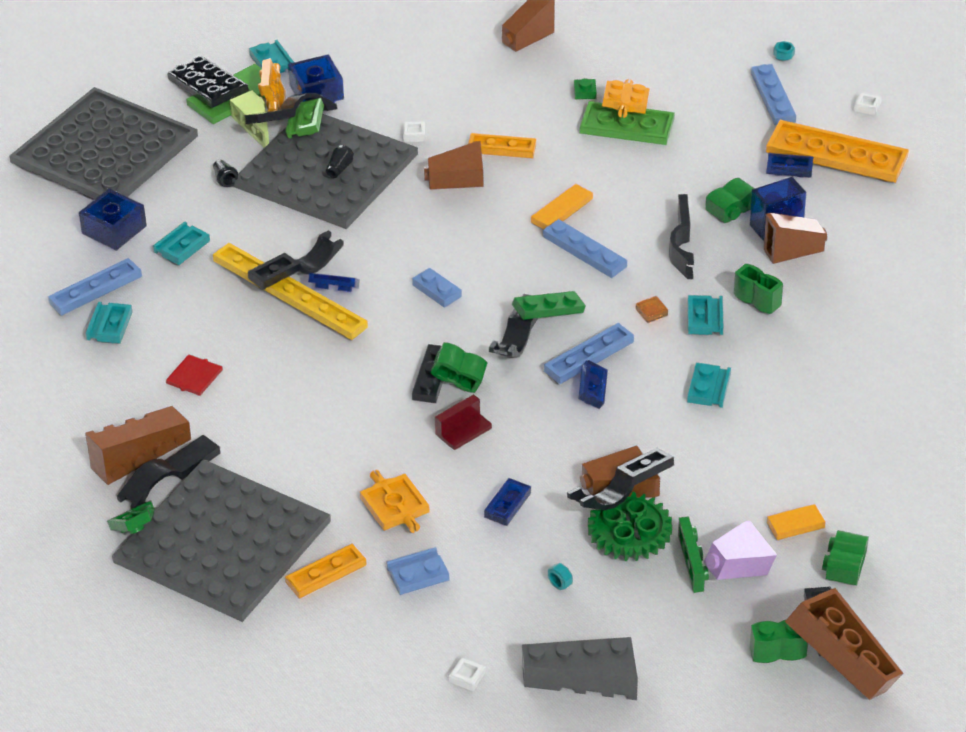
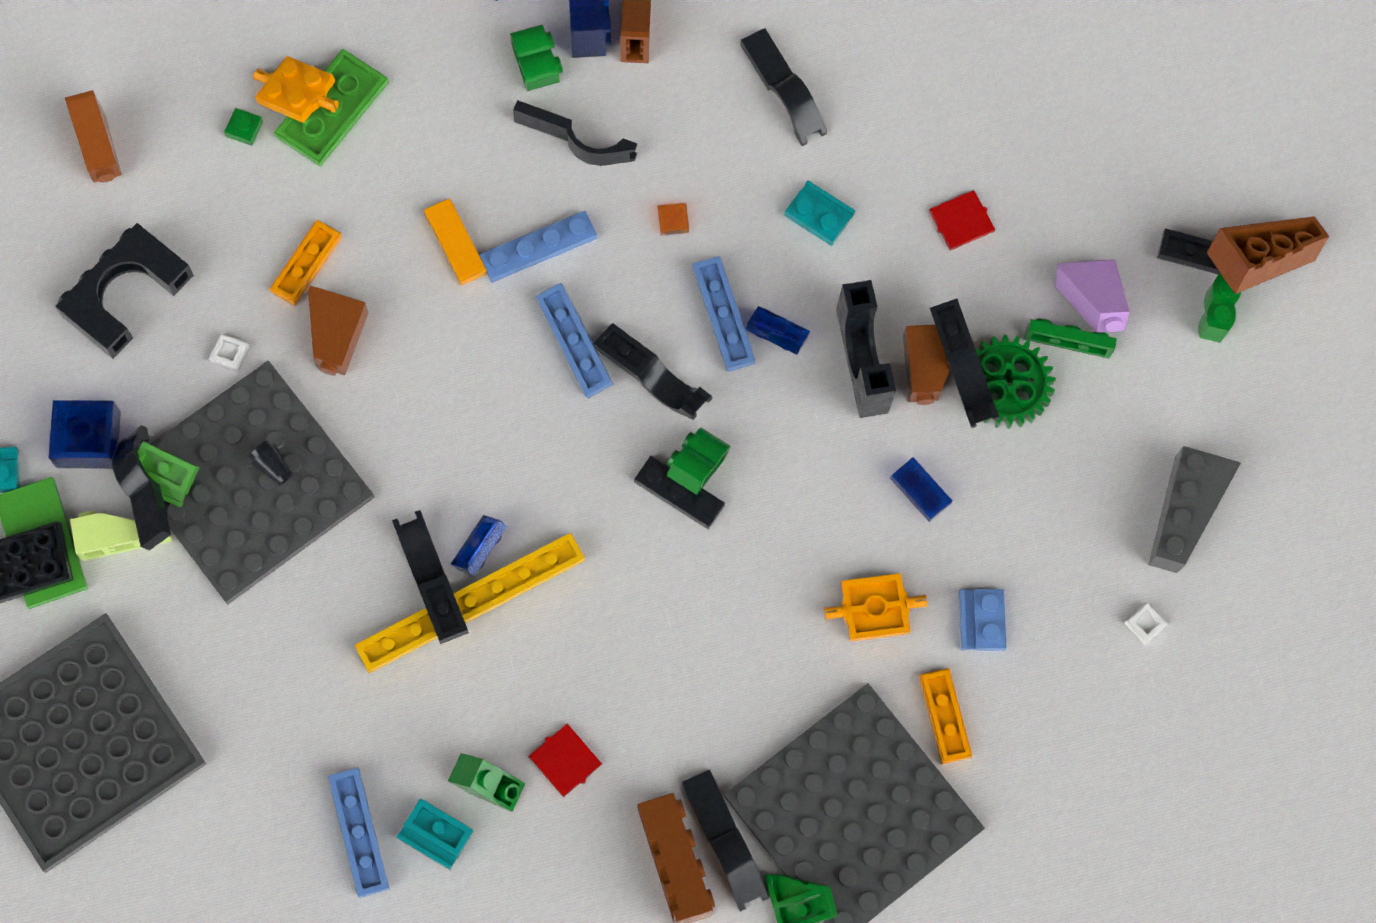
camera: 75 degrees left, 30 degrees up
(112, 219) = (248, 774): clear blue brick -> none
(157, 334) = (486, 781): none -> green slope
(181, 243) = (323, 702): teal plate -> none
(225, 173) = (207, 606): black cone -> none
(271, 85) = (87, 496): light orange plate -> none
(409, 58) = (134, 252): none -> black arch
(437, 287) = (534, 433): medium blue plate -> none
(461, 423) = (781, 490): dark red panel -> none
(519, 282) = (574, 340): none -> medium blue plate
(548, 305) = (632, 325): green plate -> none
(560, 576) = (1052, 479): teal tile -> none
(627, 418) = (871, 381): none -> black arch
(705, 314) = (712, 169): teal plate -> none
(758, 288) = (707, 97): green brick -> none
(758, 468) = (962, 220): none -> red piece
(791, 336) = (786, 84): none -> black piece
(796, 522) = (1055, 219): light orange tile -> none
(845, 557) = (1129, 195): green brick -> none

